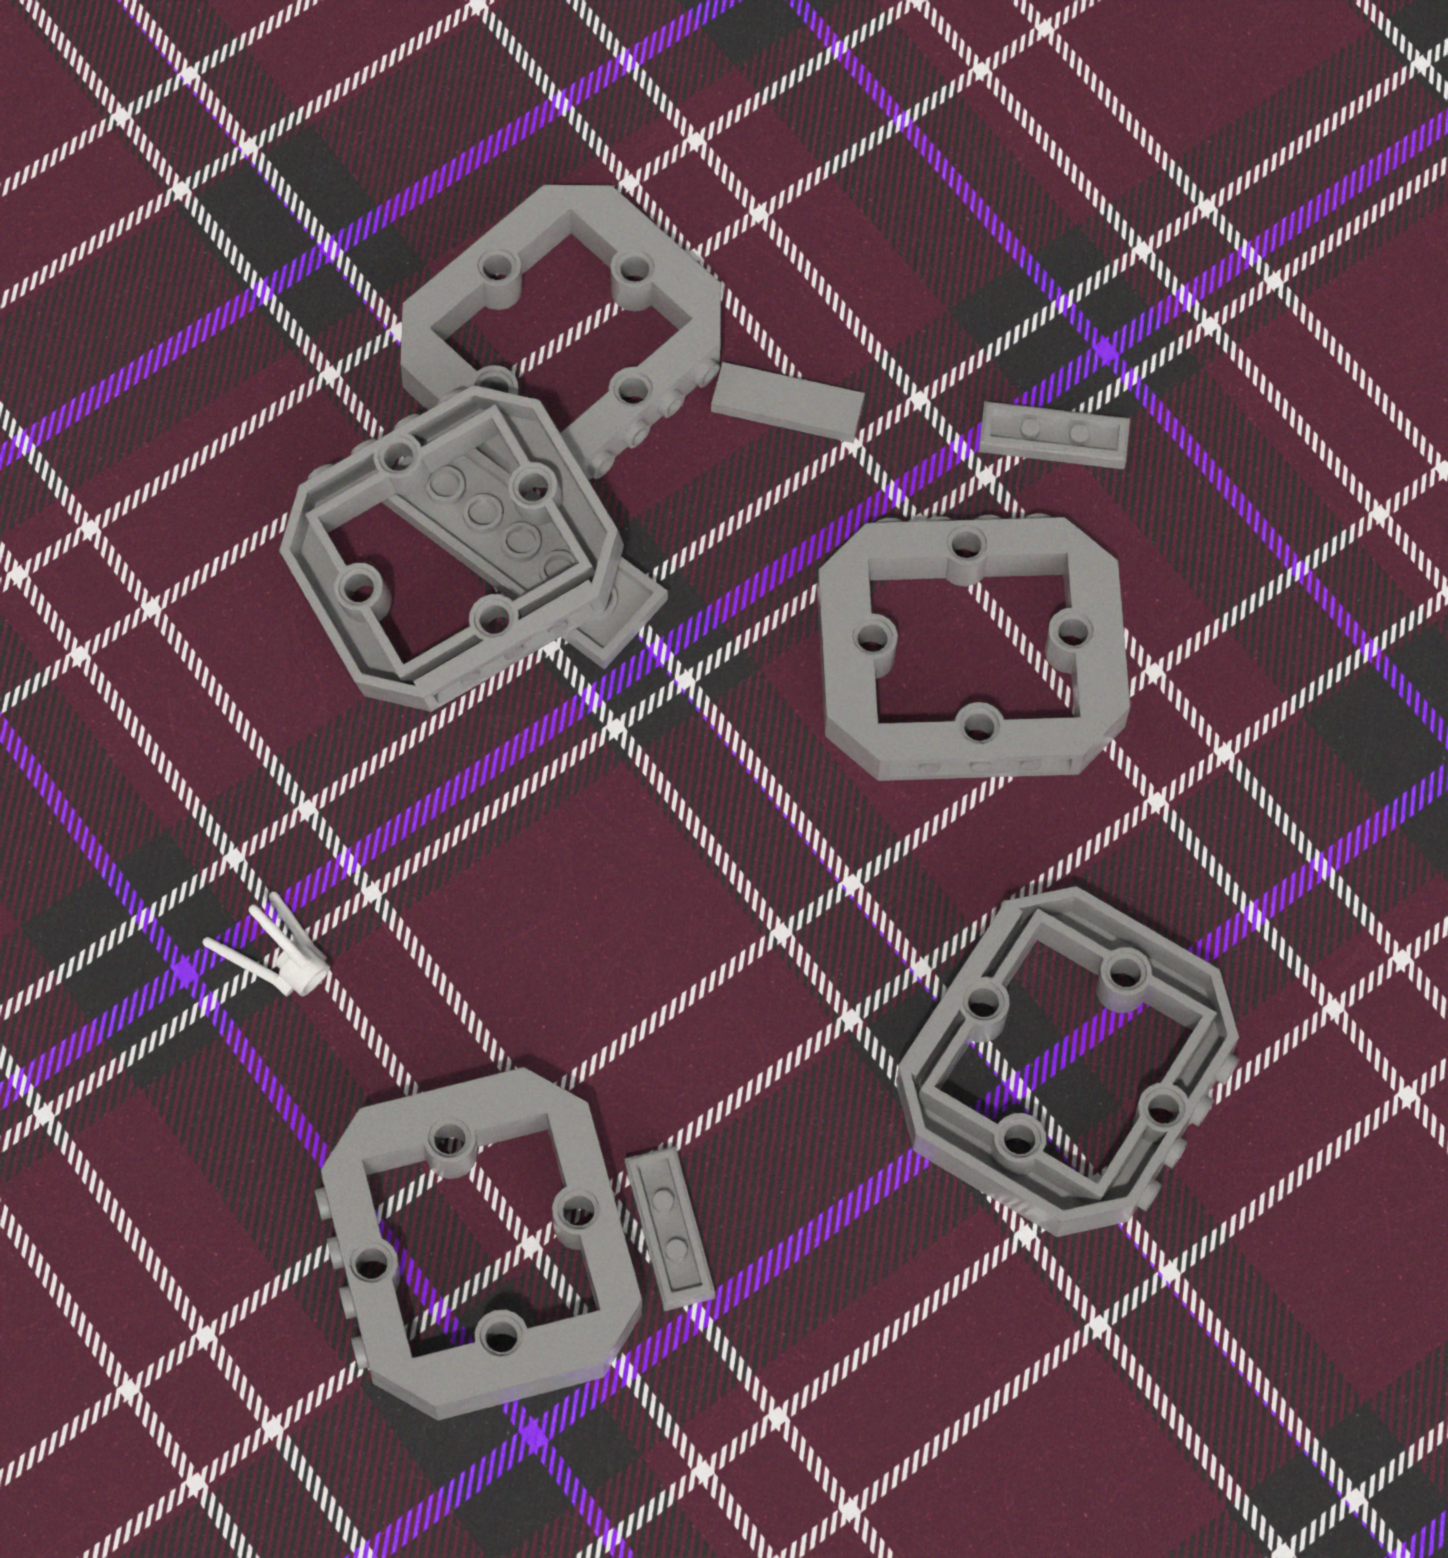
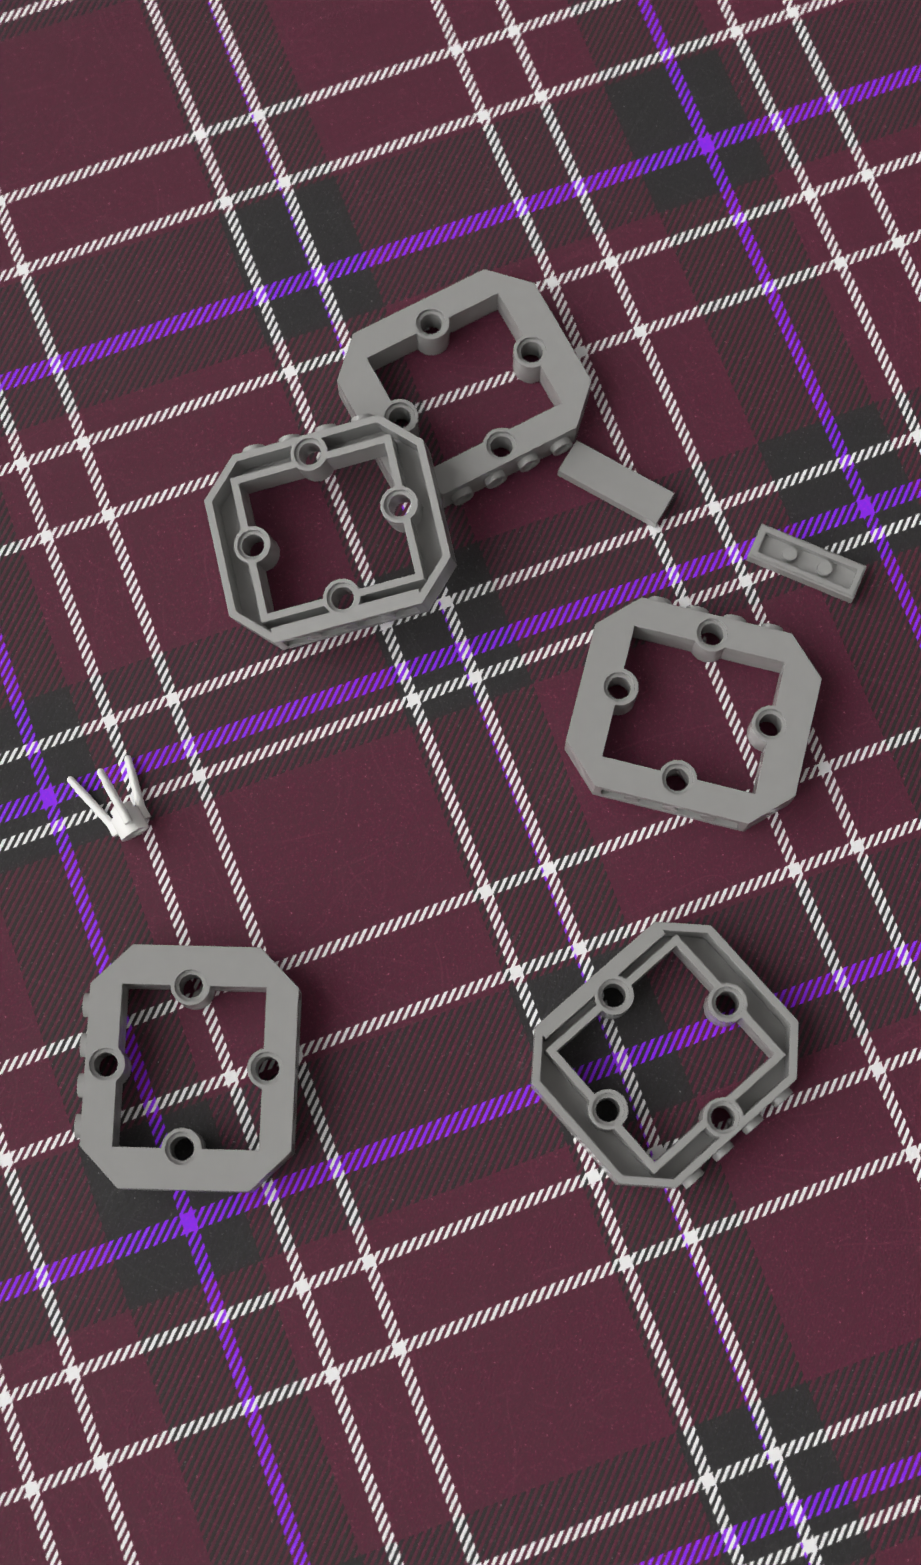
camera: 20 degrees right, 10 degrees up
(474, 520) = (352, 511): light grey plate -> none
(669, 1228) = (333, 1095): light grey tile -> none

